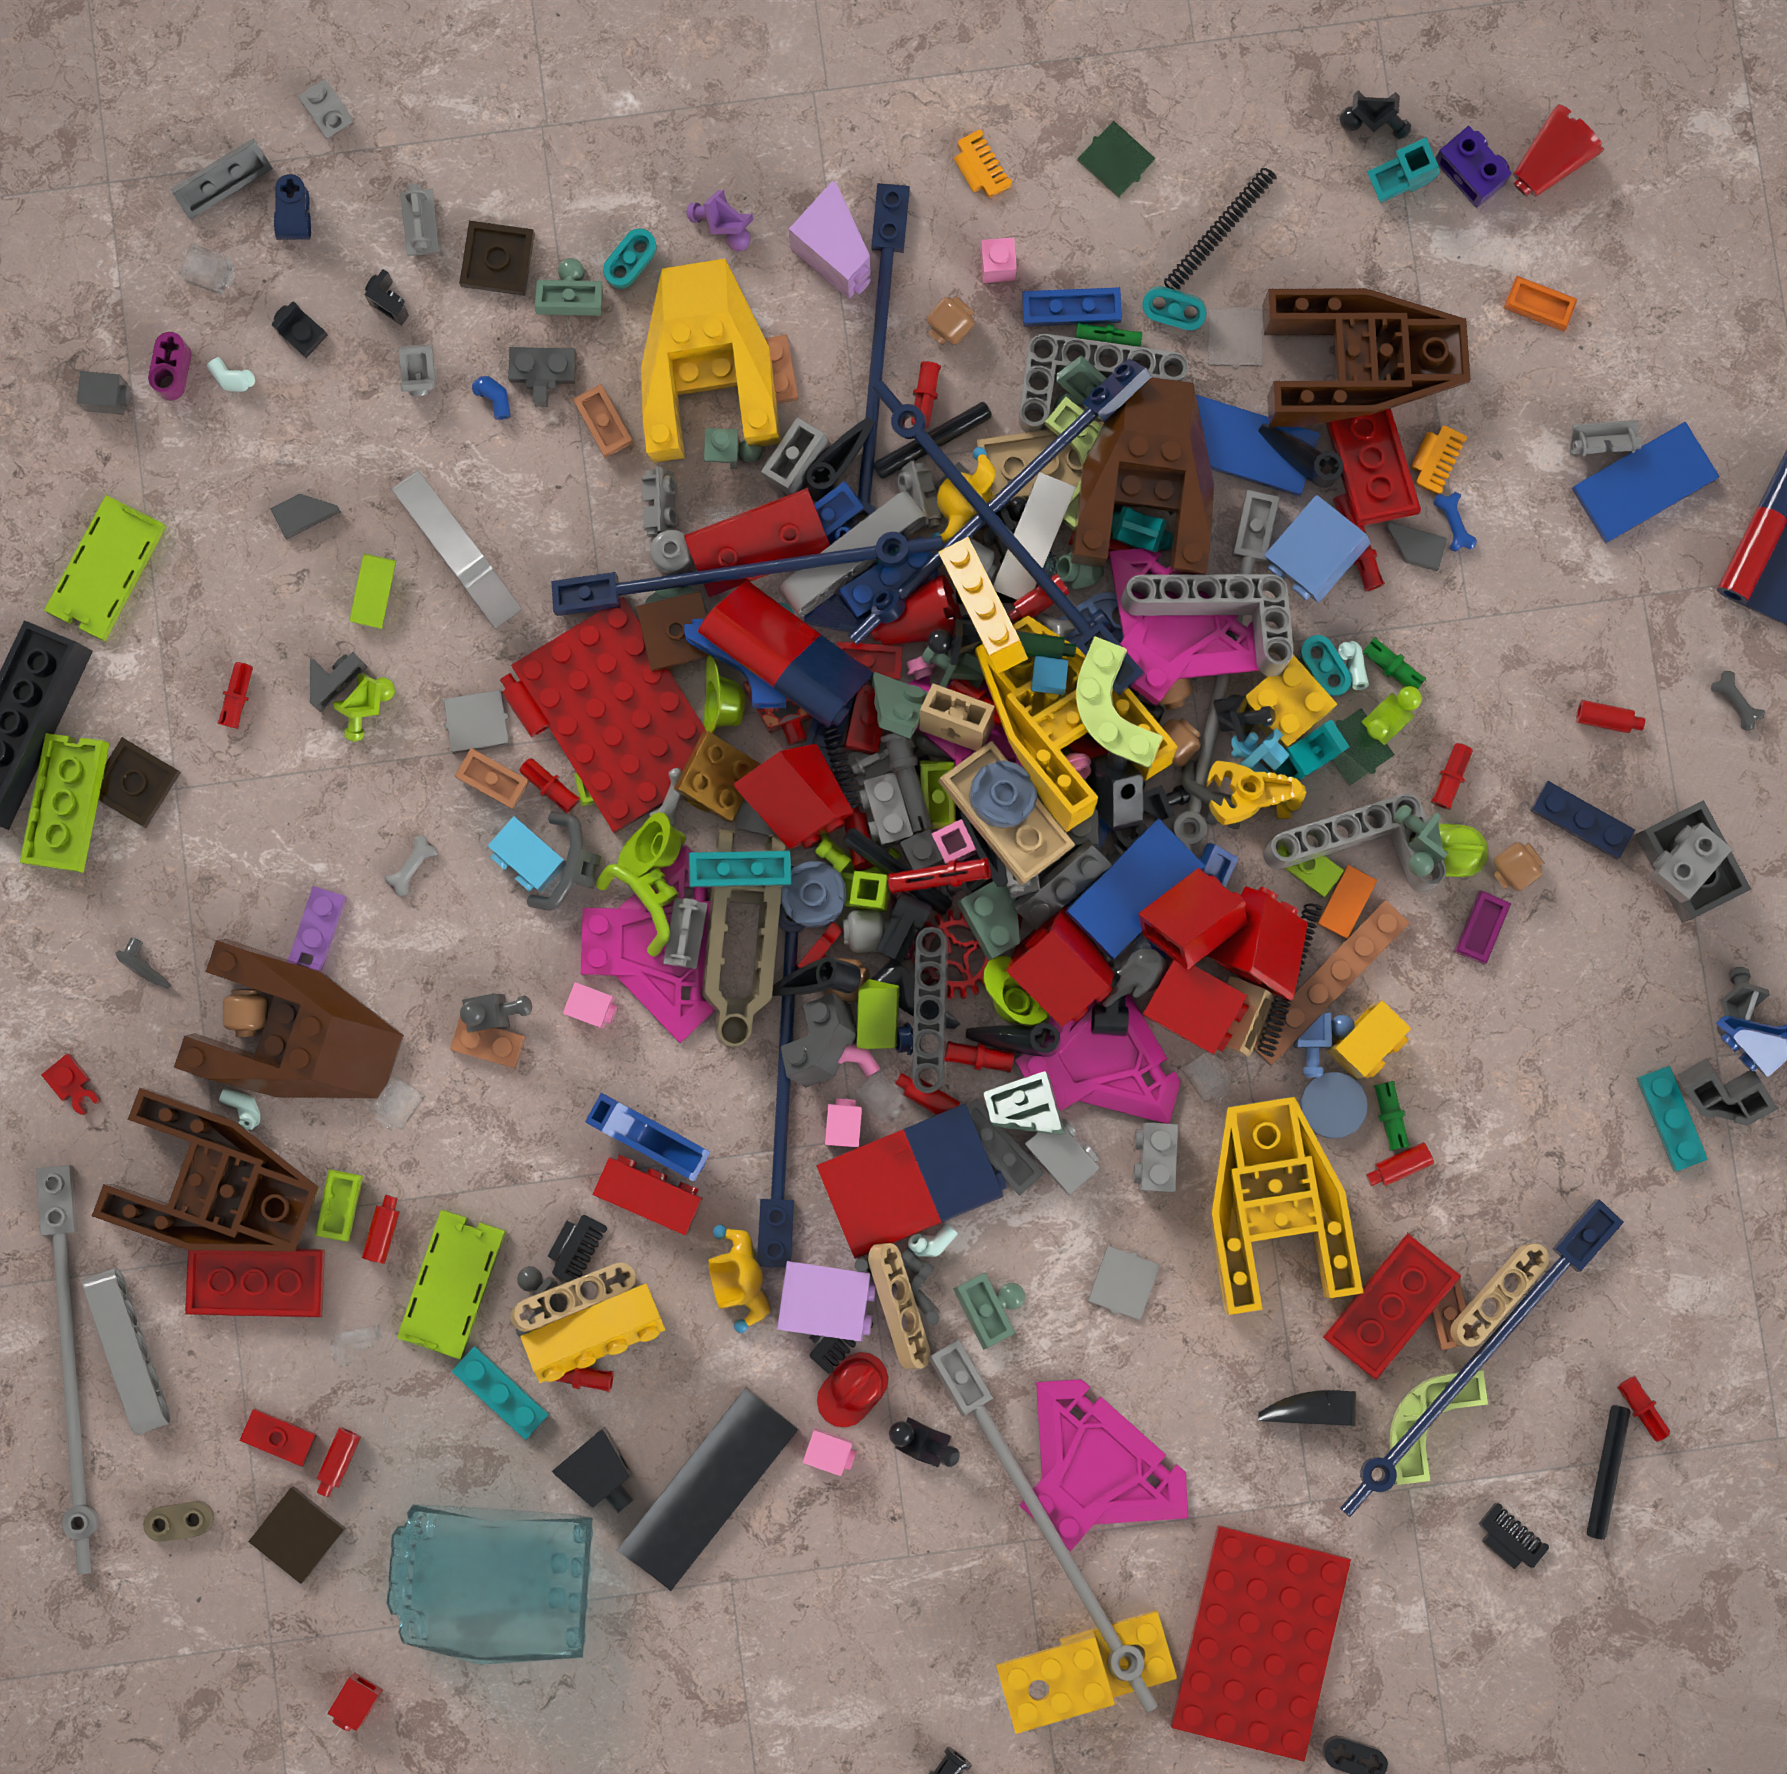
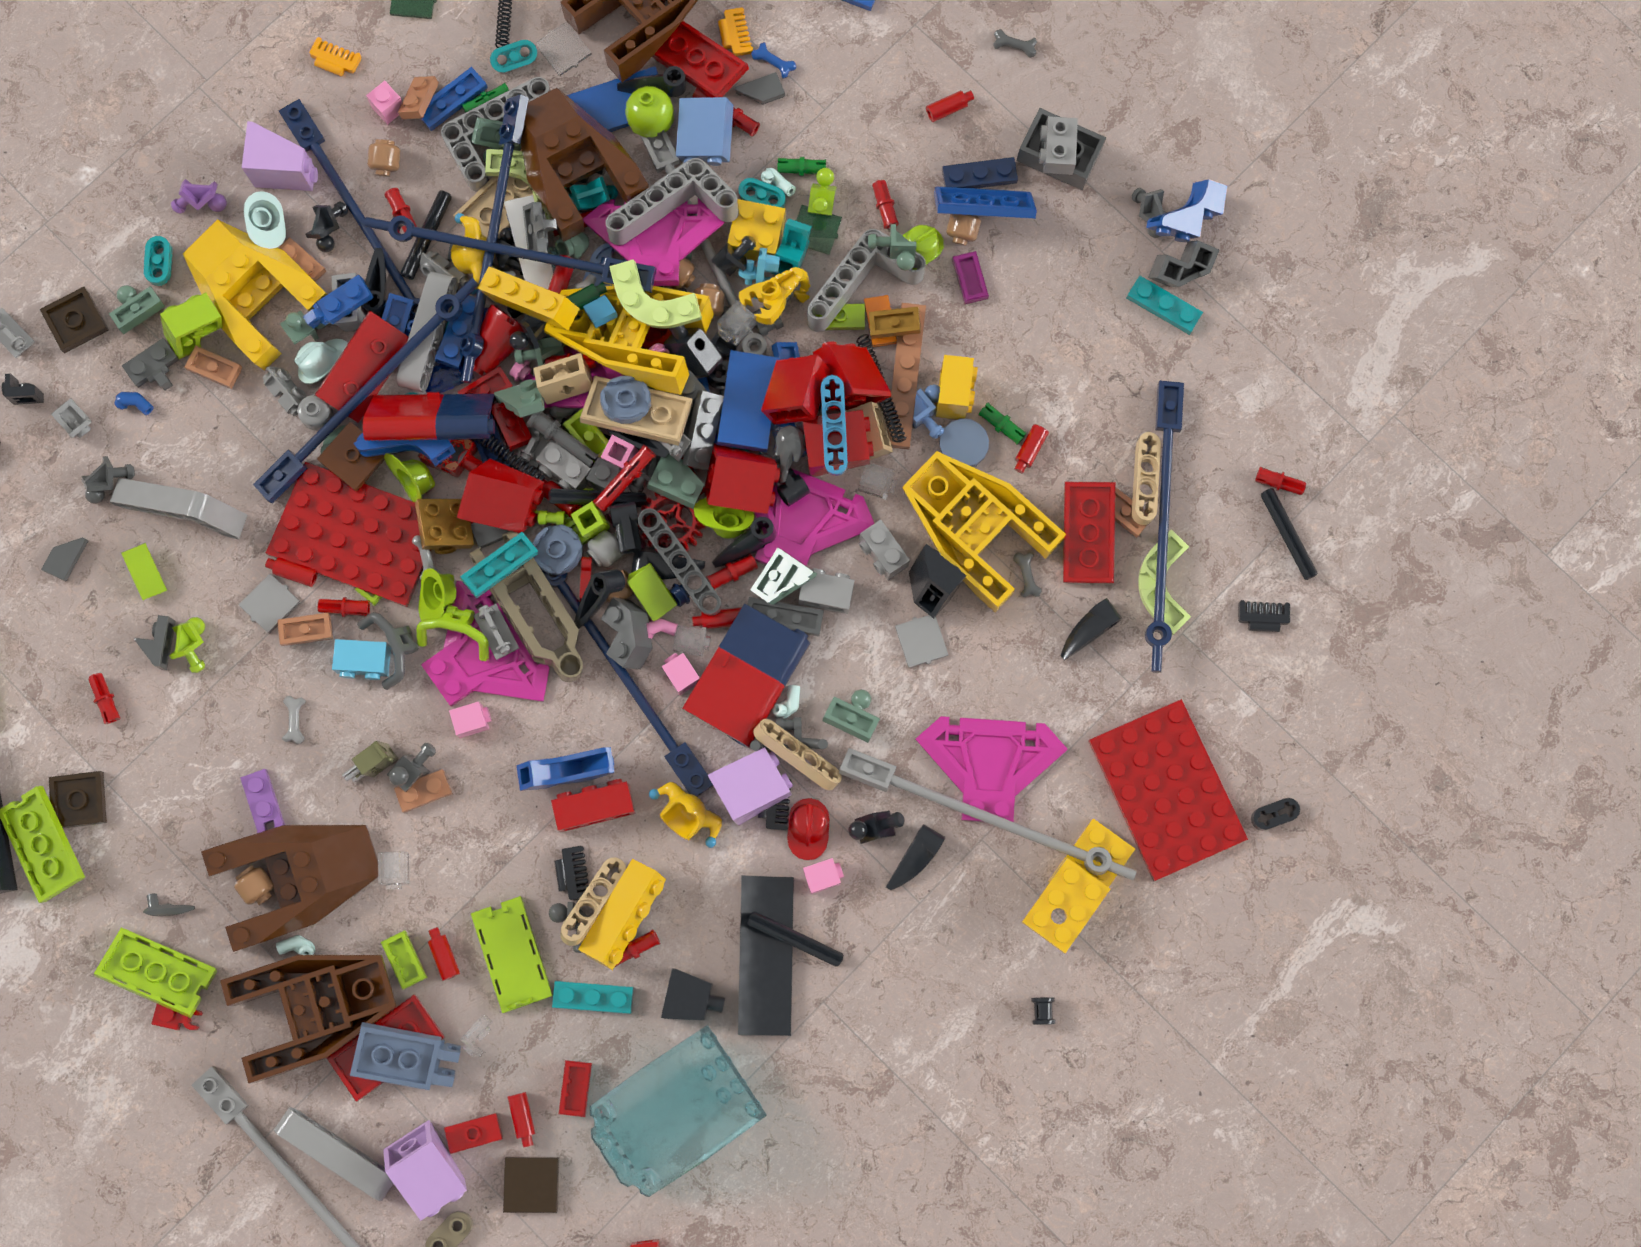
camera: 40 degrees left, 5 degrees down
(82, 1025) = (155, 972): none -> lime piece
(200, 1437) = (424, 1171): none -> lavender slope
(264, 1309) = (403, 1057): none -> sand blue tile
(401, 459) = (102, 479): none -> dark grey piece
(413, 1472) = (575, 1088): none -> red plate
(457, 974) = (371, 761): none -> olive piece
(612, 357) = (189, 322): none -> lime brick
(719, 497) = (318, 358): none -> light aqua piece
(750, 1496) = (795, 939): none -> black axle
(773, 299) = (264, 220): none -> light aqua piece
(783, 455) = (339, 303): none -> blue hinge
(834, 351) = (325, 224): none -> black piece
(945, 1507) = (917, 857): none -> black piece
(1036, 280) = (418, 97): none -> nougat plate
(1052, 529) = (537, 227): none -> dark grey hinge
(1183, 1233) = (933, 581): none -> black slope
(1186, 794) = (736, 323): none -> clear brick
(1206, 993) = (834, 425): none -> dark azure beam
(1273, 484) = (649, 111): none -> lime cylinder
(1298, 1283) = (1024, 562): none -> dark grey piece
(1359, 919) = (894, 322): none -> pearl gold plate
(1561, 859) = (984, 202): none -> blue tile

